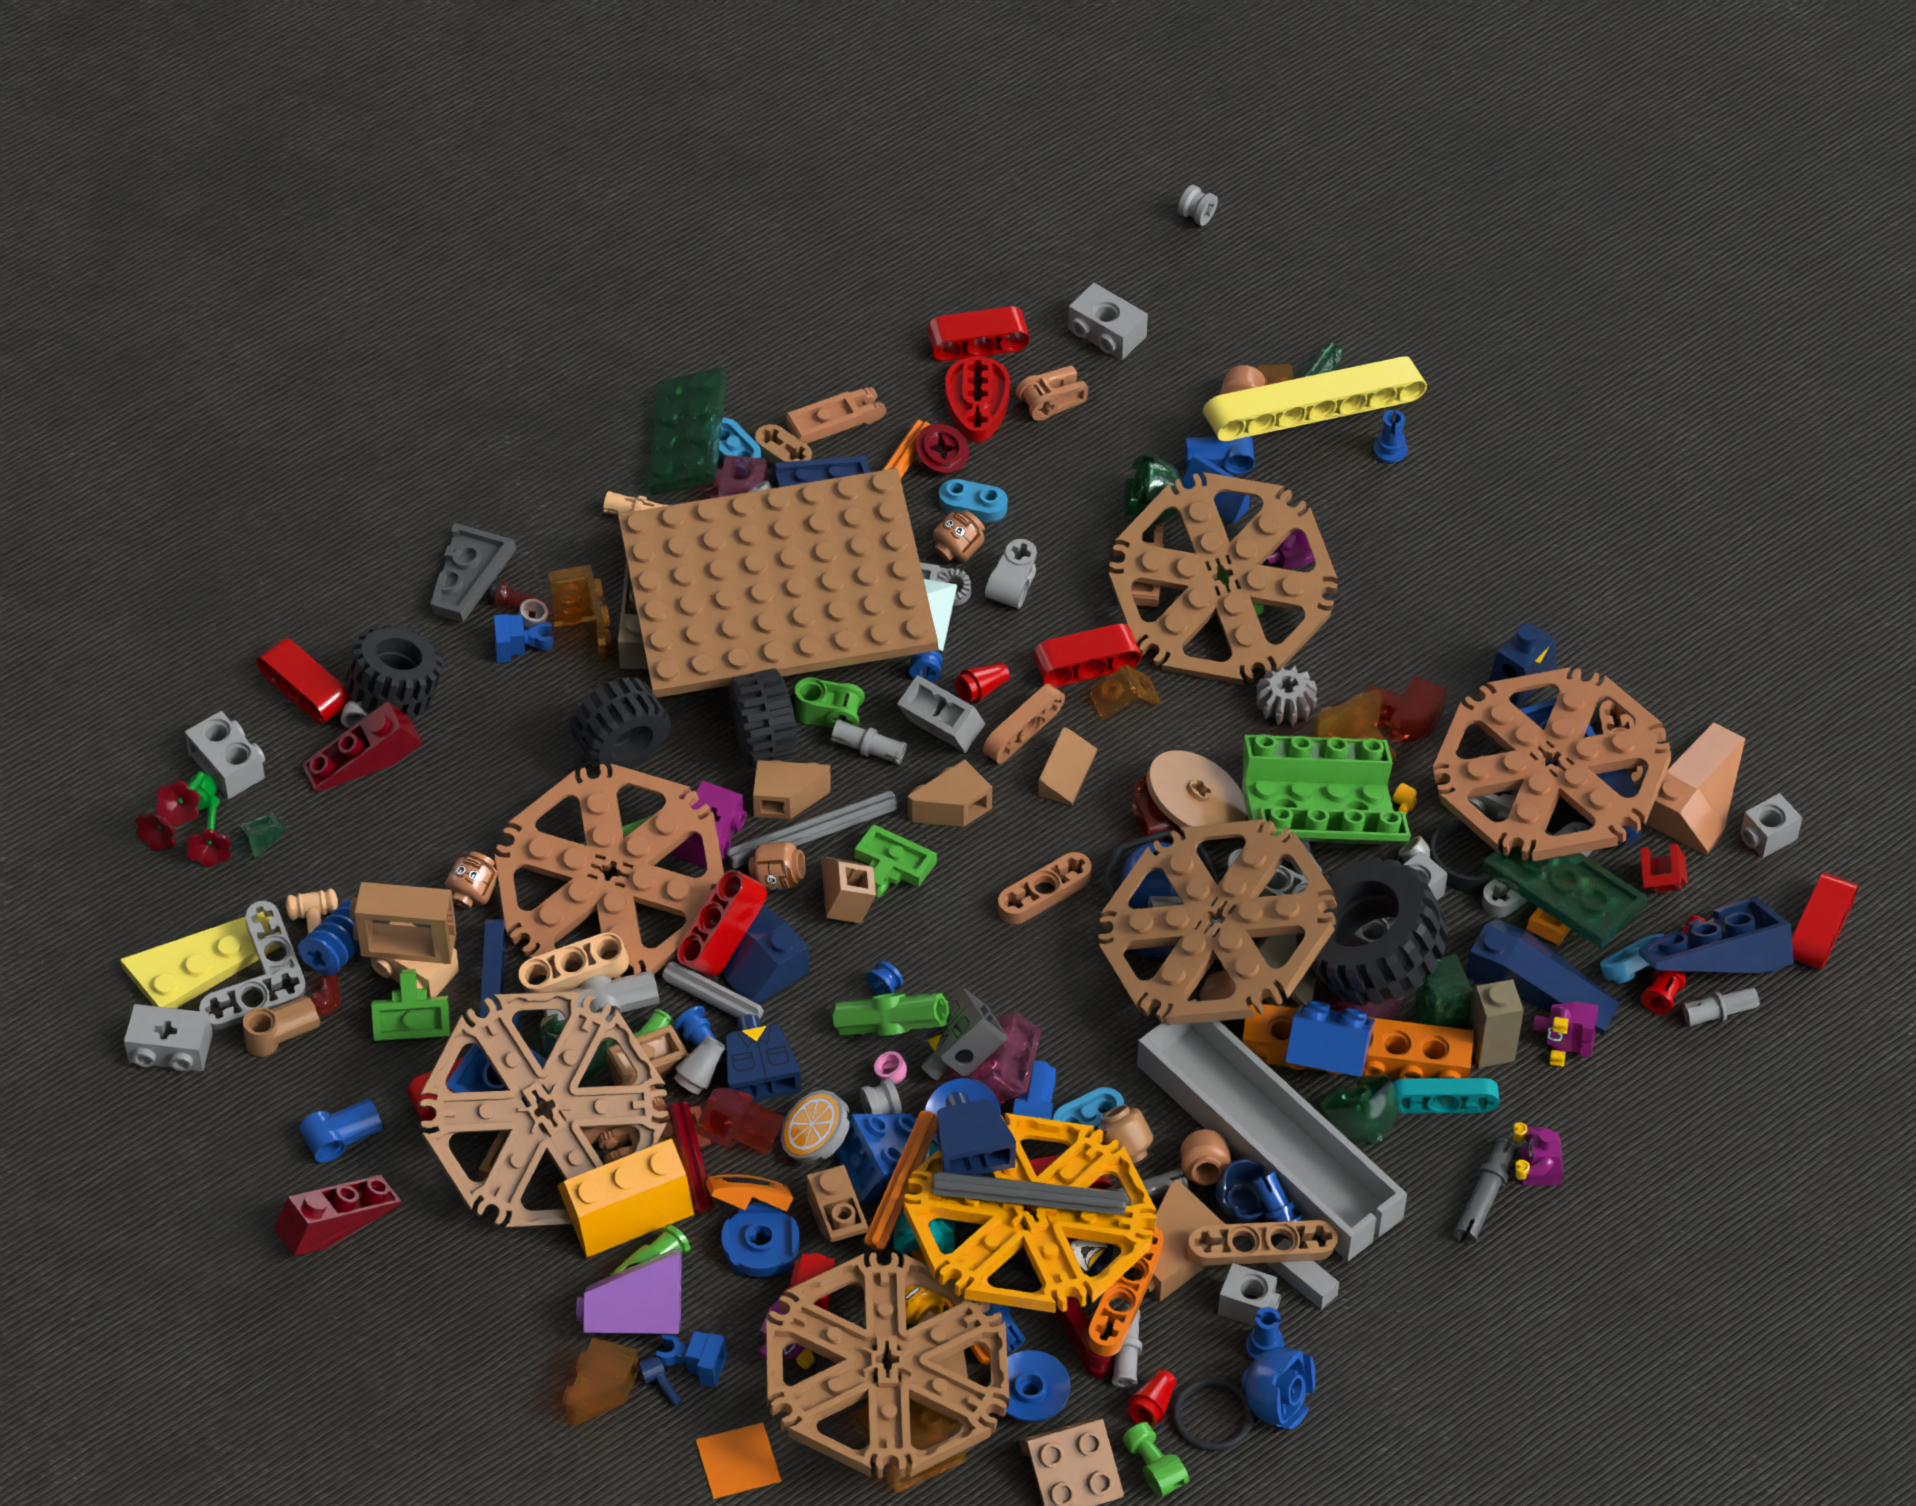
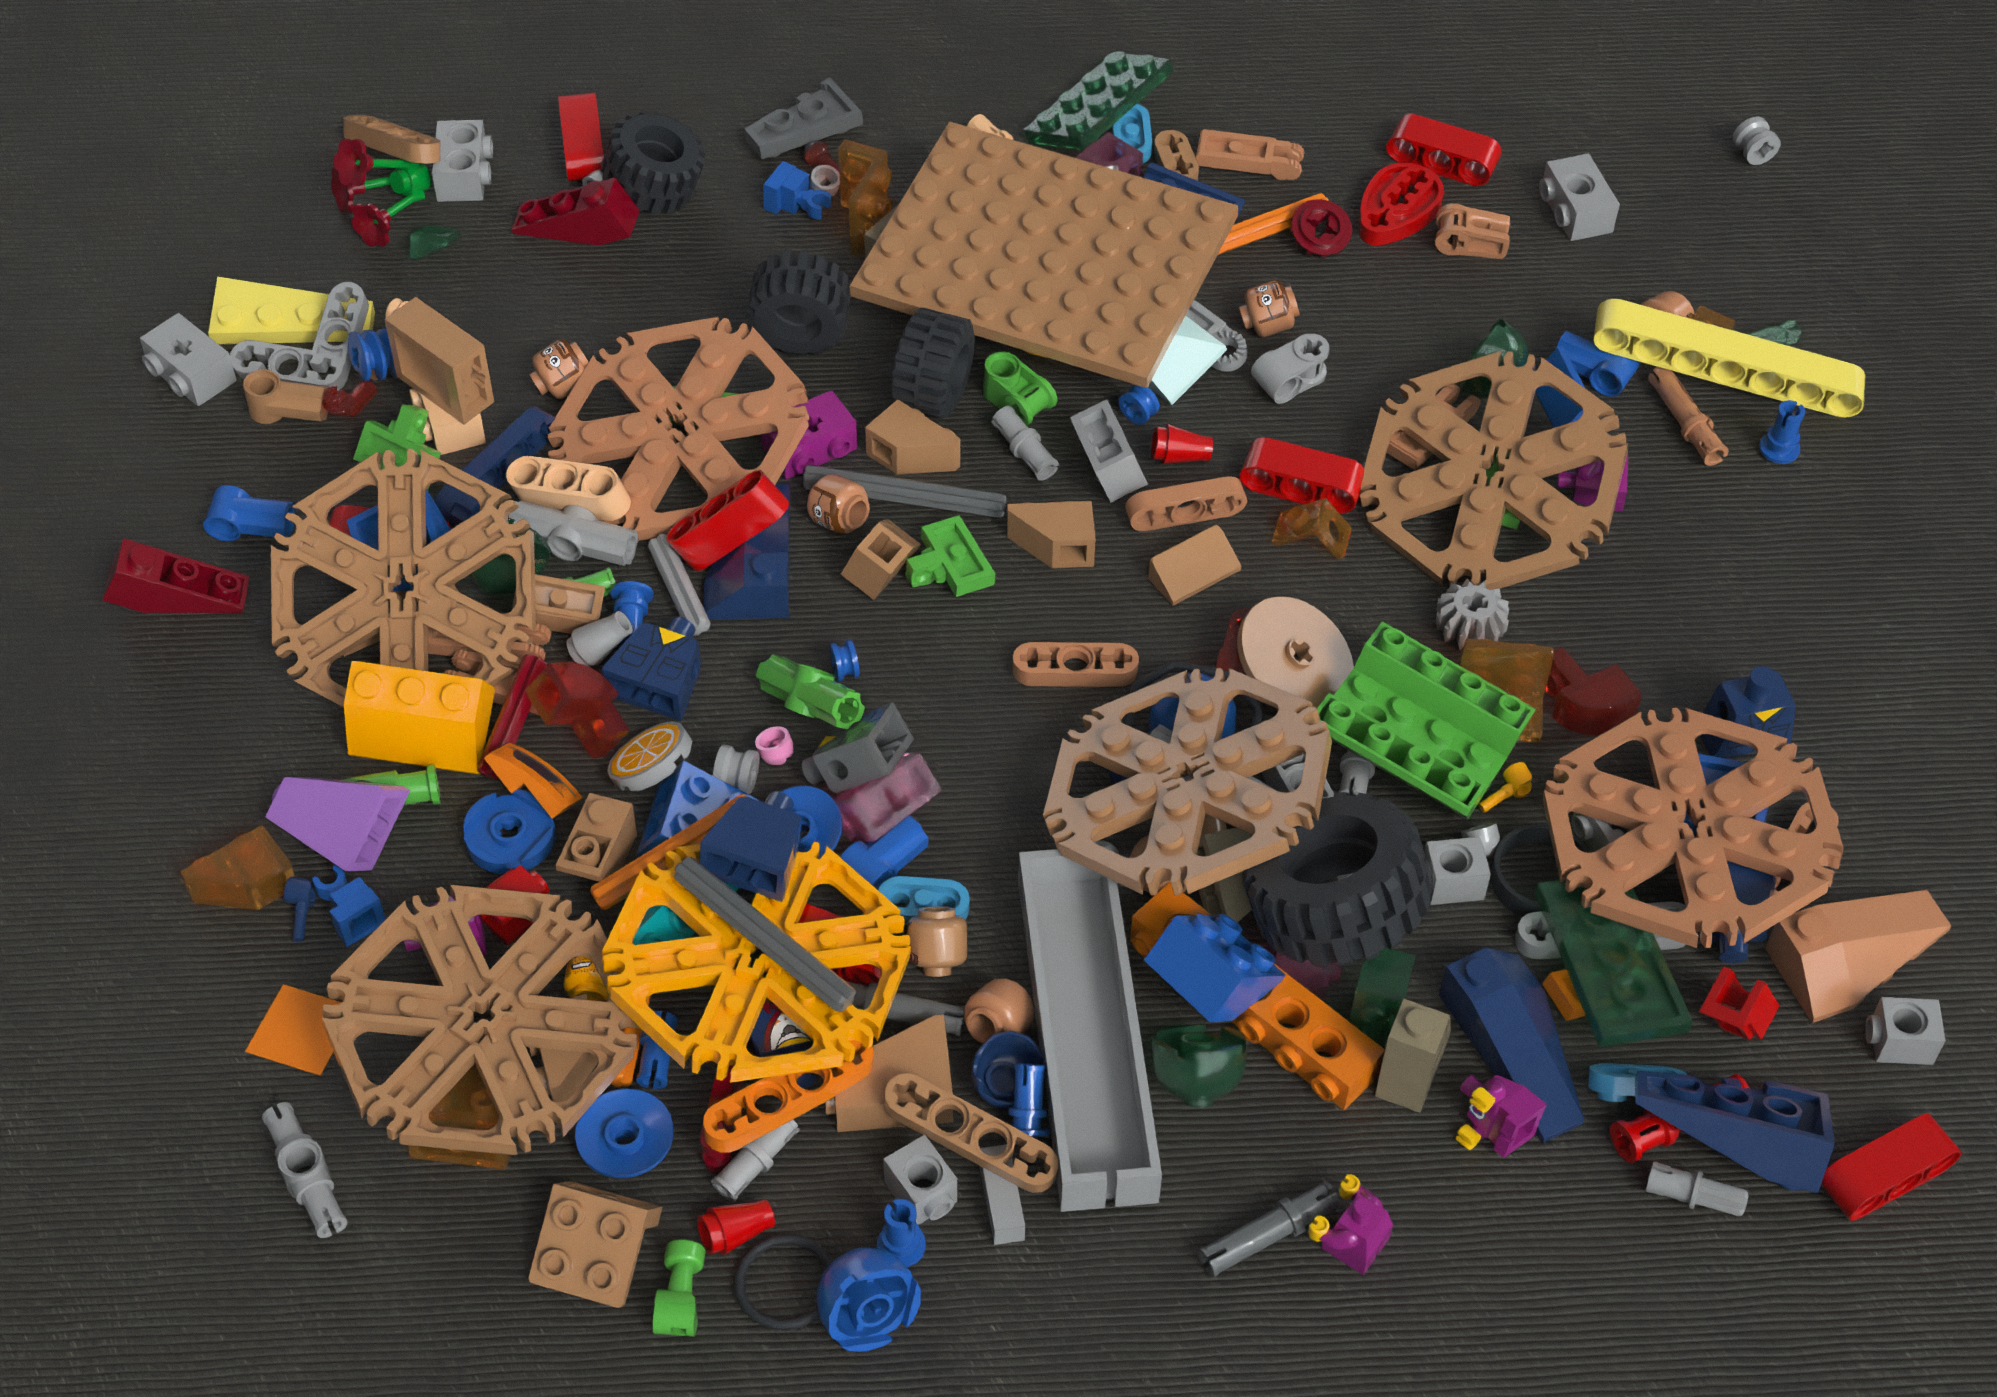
camera: 35 degrees right, 0 degrees up
(161, 767) = (392, 139): none -> medium nougat beam
(982, 500) = (1316, 288): dark azure plate -> none
(1325, 464) = (1694, 425): none -> nougat pin
(1462, 1095) = (1306, 1101): teal beam -> none

